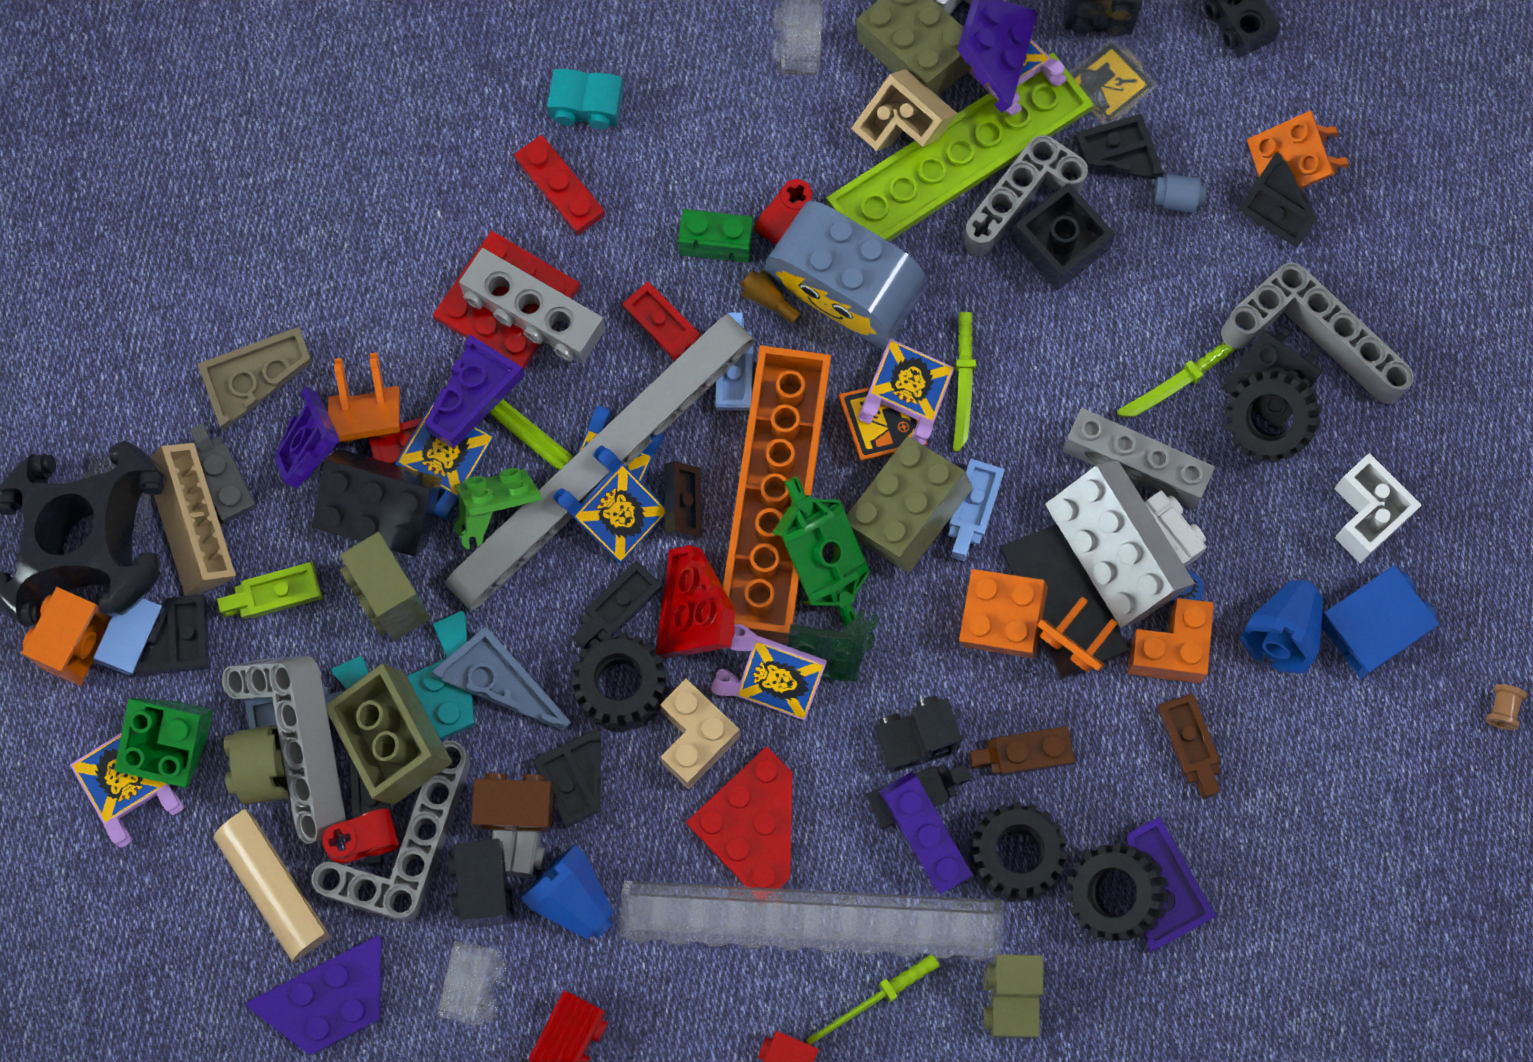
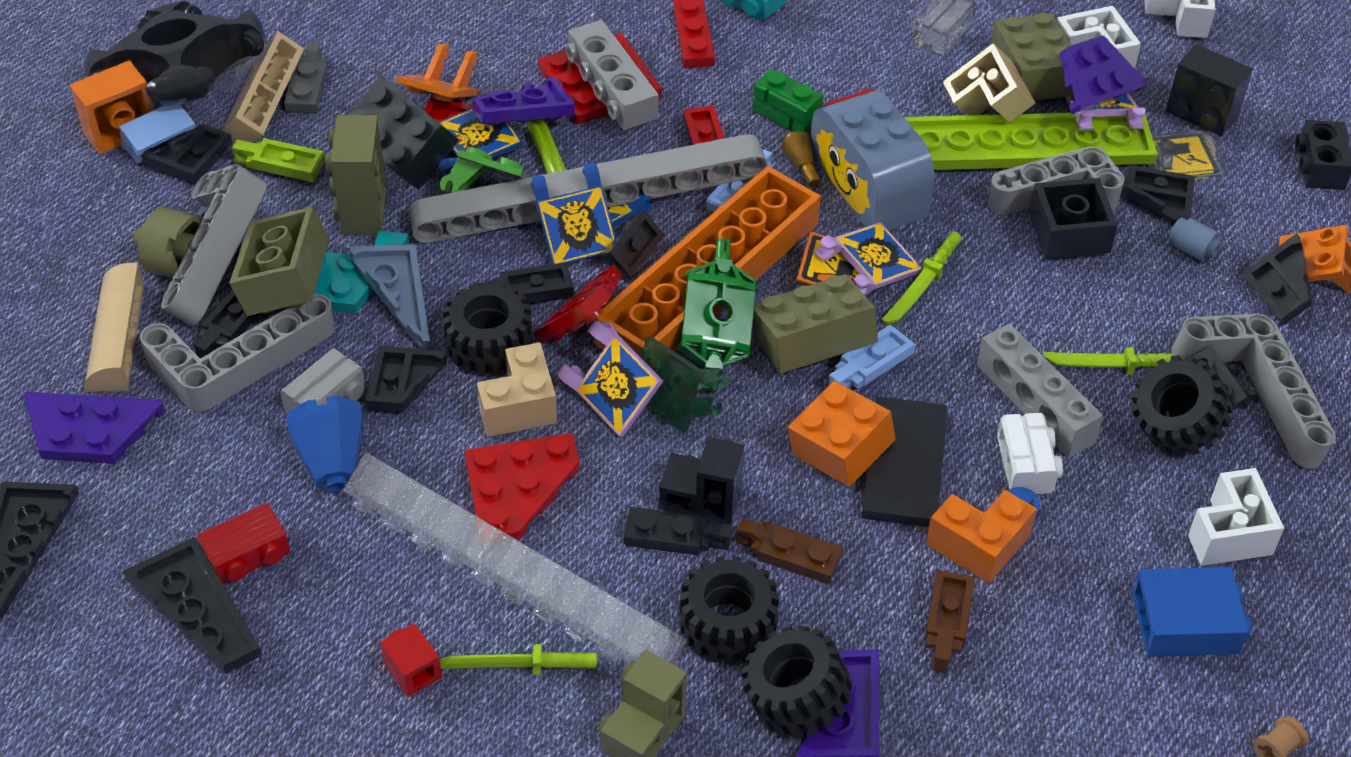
camera: 30 degrees right, 25 degrees down
(118, 793) = (72, 216): flag -> none
(163, 740) = (120, 197): green slope -> none
(253, 373) = (381, 35): dark tan wing -> none
(306, 440) = (390, 65): dark purple wing -> none
(364, 837) = (205, 319): red piece -> none
(470, 985) = (199, 467): clear brick -> none
(482, 884) = (261, 396): black brick -> none
(512, 803) = (333, 349): reddish brown brick -> none
(925, 833) = (655, 548): dark purple brick -> none
(1083, 658) = (884, 469): orange plate -> none
(1119, 543) = (979, 429): light grey brick -> none
(1287, 628) = (1093, 568): blue cone -> none

